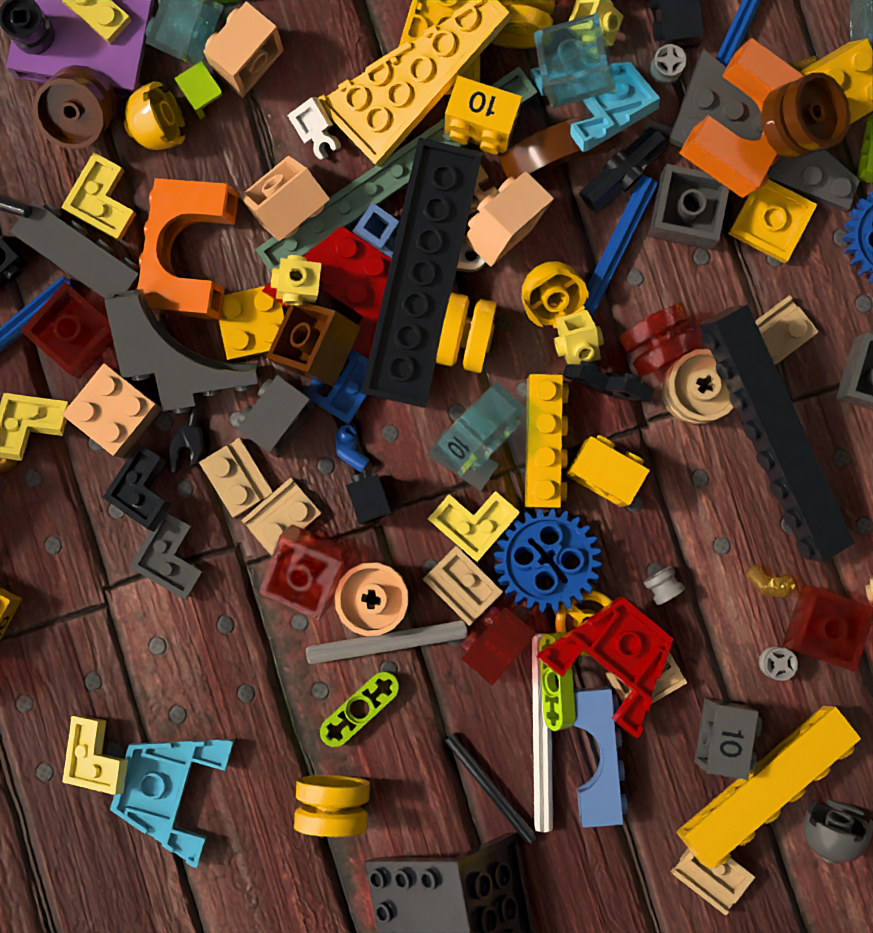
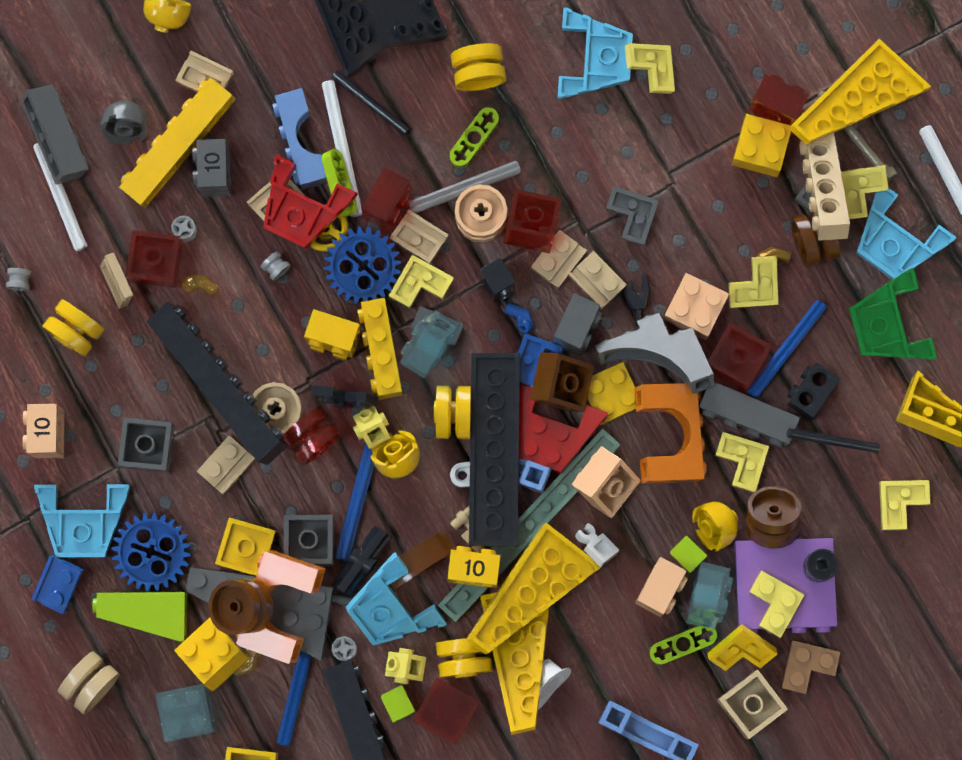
camera: 170 degrees right, 5 degrees down
(132, 490) = (669, 255): black plate -> none
(307, 278) = (573, 420): light yellow brick -> none
(507, 217) = (440, 498): light nougat brick -> none
(574, 60) = (414, 623): clear light blue brick -> none

